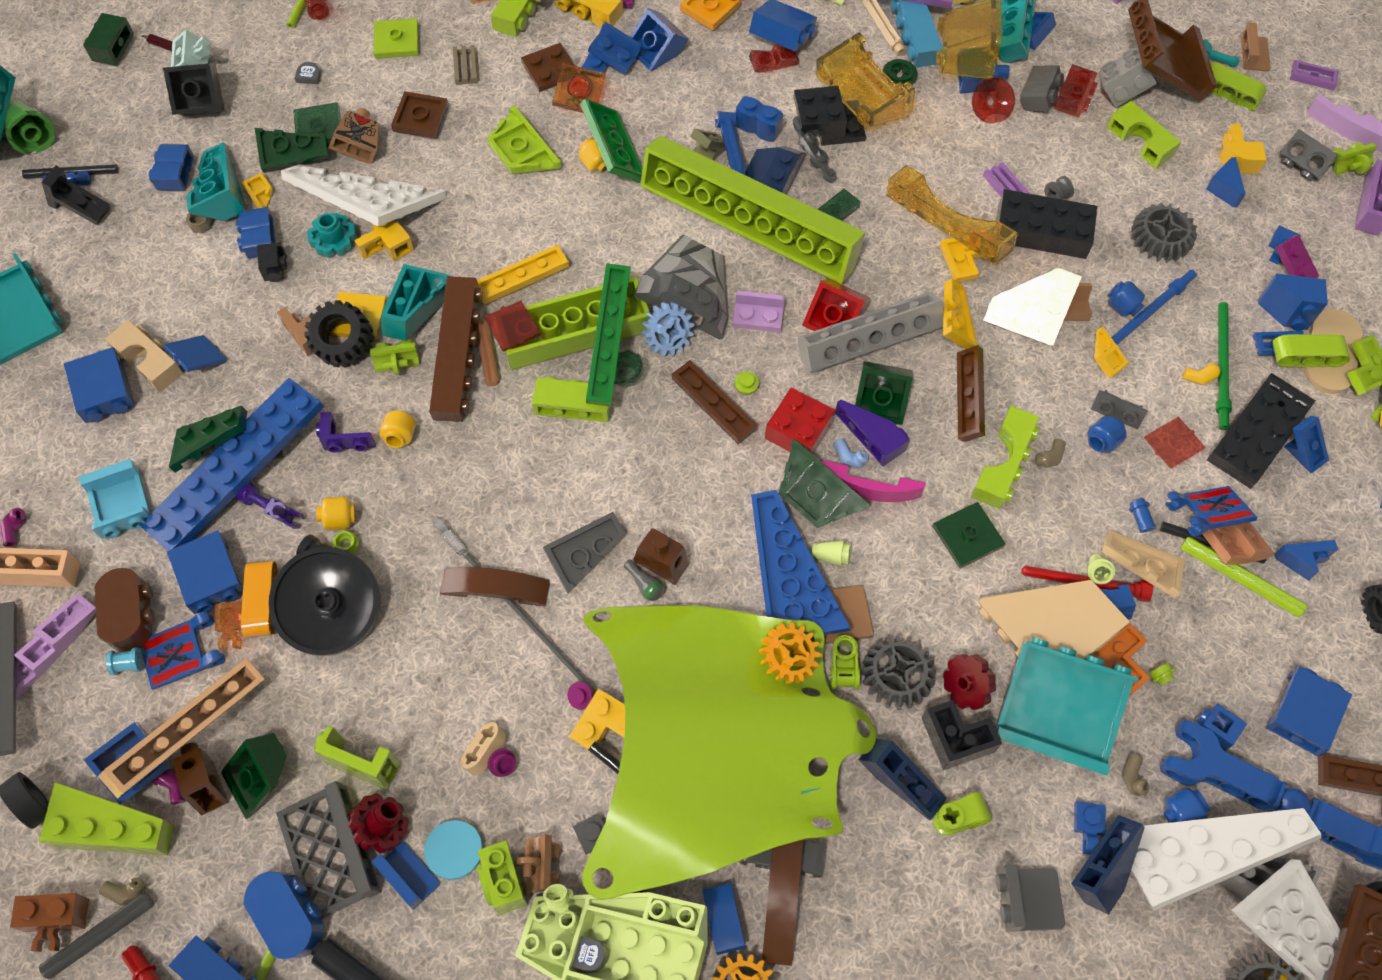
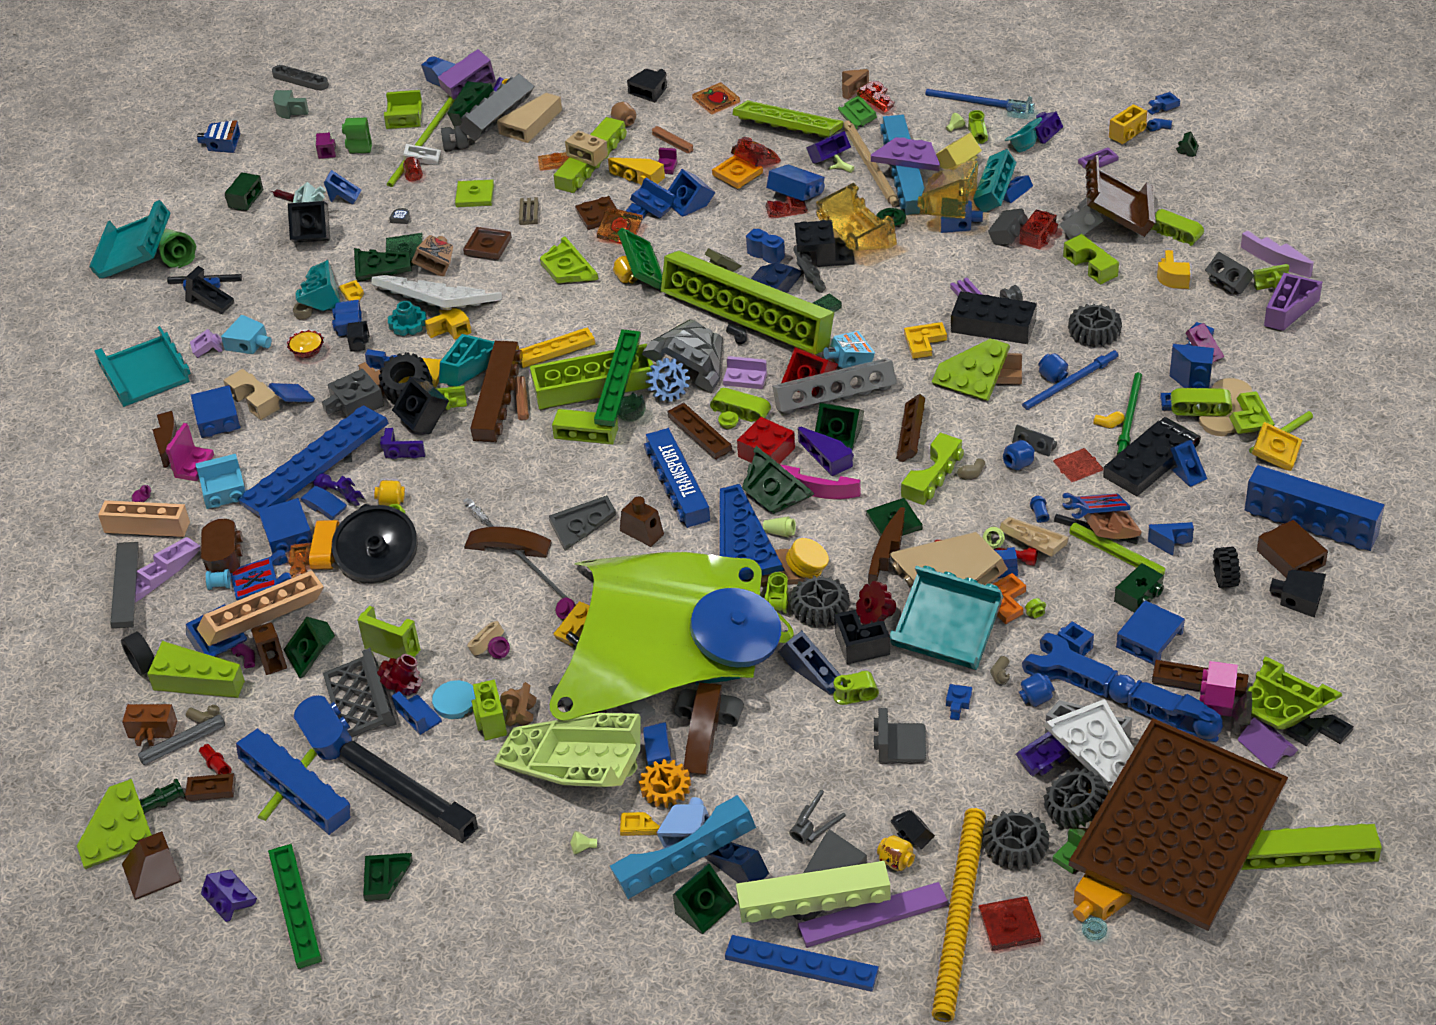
camera: 10 degrees right, 20 degrees down
(38, 429) = (165, 434): none -> reddish brown slope
(66, 459) = (184, 454): none -> dark pink bracket
(78, 274) = (205, 342): none -> lavender bracket
(129, 263) = (245, 336): none -> medium azure torso
(171, 167) = (285, 275): blue brick -> none
(196, 437) = (286, 444): dark green wing -> none
(206, 275) = (305, 344): none -> yellow piece
(227, 31) = (338, 185): none -> blue slope
(252, 527) = (324, 502): none -> blue slope
(274, 357) = (353, 392): none -> dark grey hinge
(303, 299) = (376, 358): none -> blue plate
(361, 377) = (420, 405): none -> black brick
(397, 429) = (444, 442): yellow head -> none
(512, 326) = (542, 372): clear red piece -> none
(556, 899) = (528, 720): yellowish green plate -> none
(590, 955) = (550, 755): tile -> none
(649, 586) = (629, 544): dark grey piece -> none
(696, 478) = (677, 478): none -> blue brick
(727, 122) = (738, 250): blue piece -> none
(743, 249) = (739, 333): none -> black arm
(761, 361) = (744, 405): none -> lime beam
(801, 651) = (730, 573): light orange gear -> none
(811, 748) = (735, 627): none -> blue dish
(848, 457) = (809, 470): light blue arm -> none
(875, 607) = (807, 558): none -> yellow head
(883, 278) = (849, 350): none -> medium azure torso
(957, 315) = (908, 376): yellow wing -> none
(974, 579) = (889, 542): none -> reddish brown slope
(985, 237) = (937, 322): clear yellow arch -> none
(1002, 96) = (967, 226): clear red dish -> none
(1108, 354) = (1031, 404): yellow tile -> none
(1109, 866) = (963, 720): dark blue slope -> none
(1197, 854) = (1025, 709): white wing -> none
(1210, 916) = (1042, 753): none -> dark purple bracket
(1228, 183) = (1155, 292): blue slope -> none
(1232, 61) = (1160, 204): teal piece -> none
(1254, 49) = (1203, 204): medium nougat panel -> none
(1284, 627) = (1139, 586): none -> dark green brick
(1314, 78) = (1251, 222): medium lavender tile -> none

